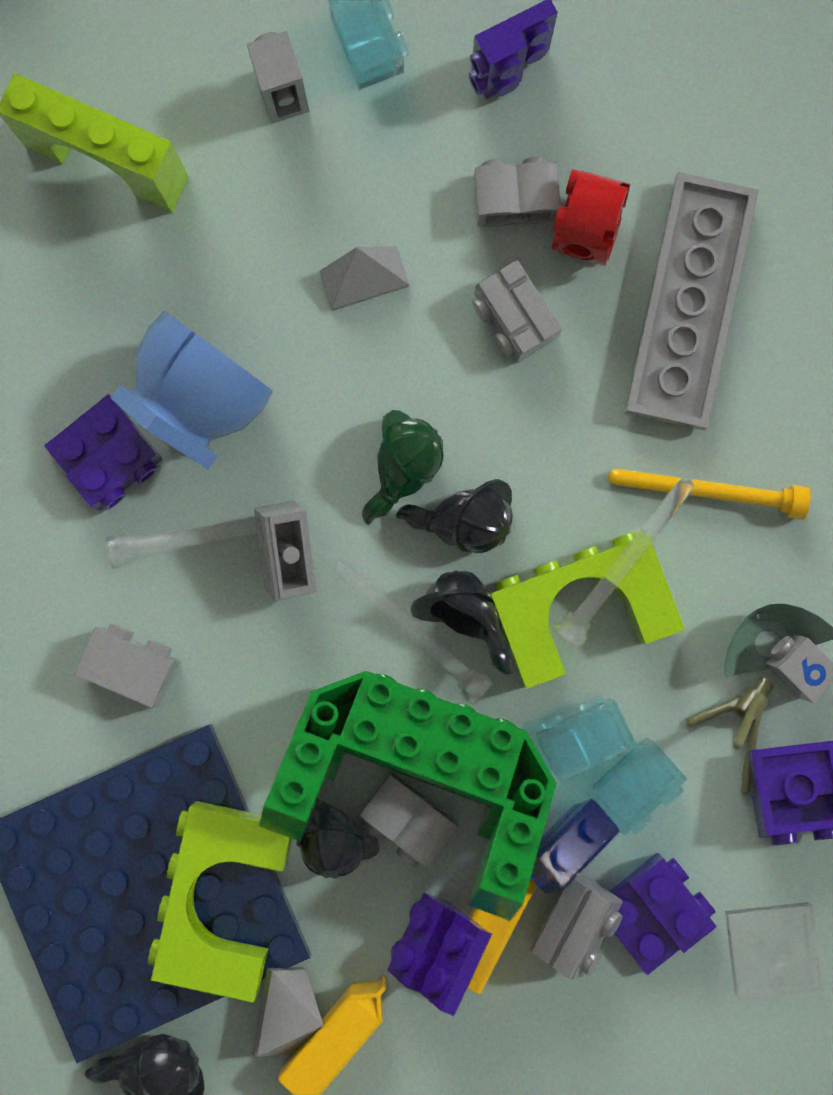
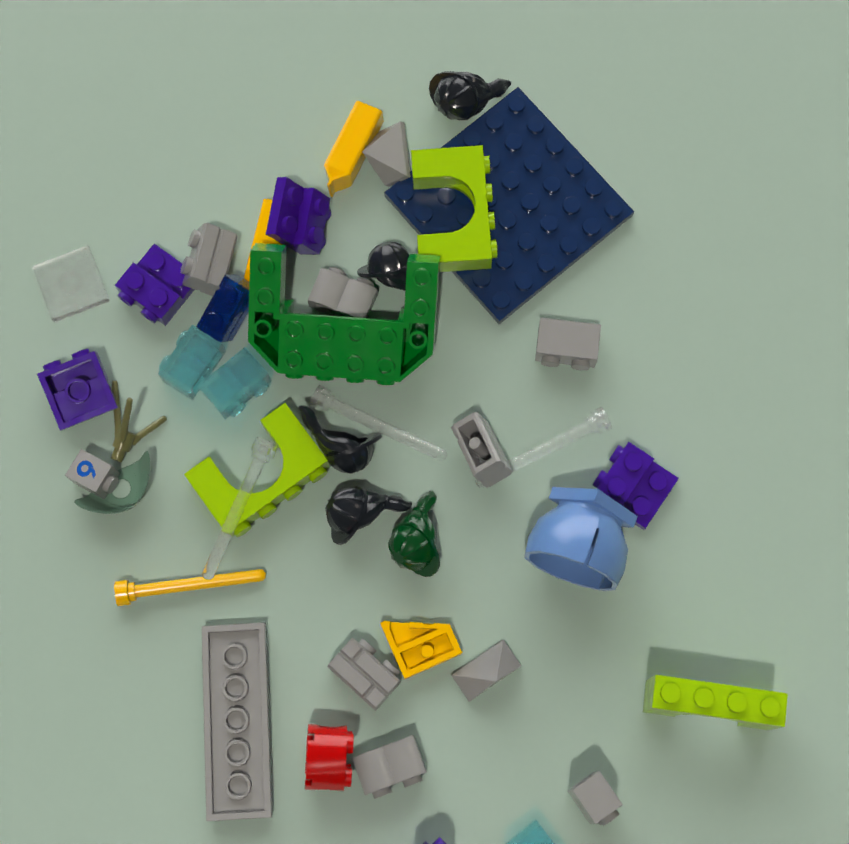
camera: 165 degrees right, 10 degrees down
(437, 328) = (420, 645): none -> yellow wing

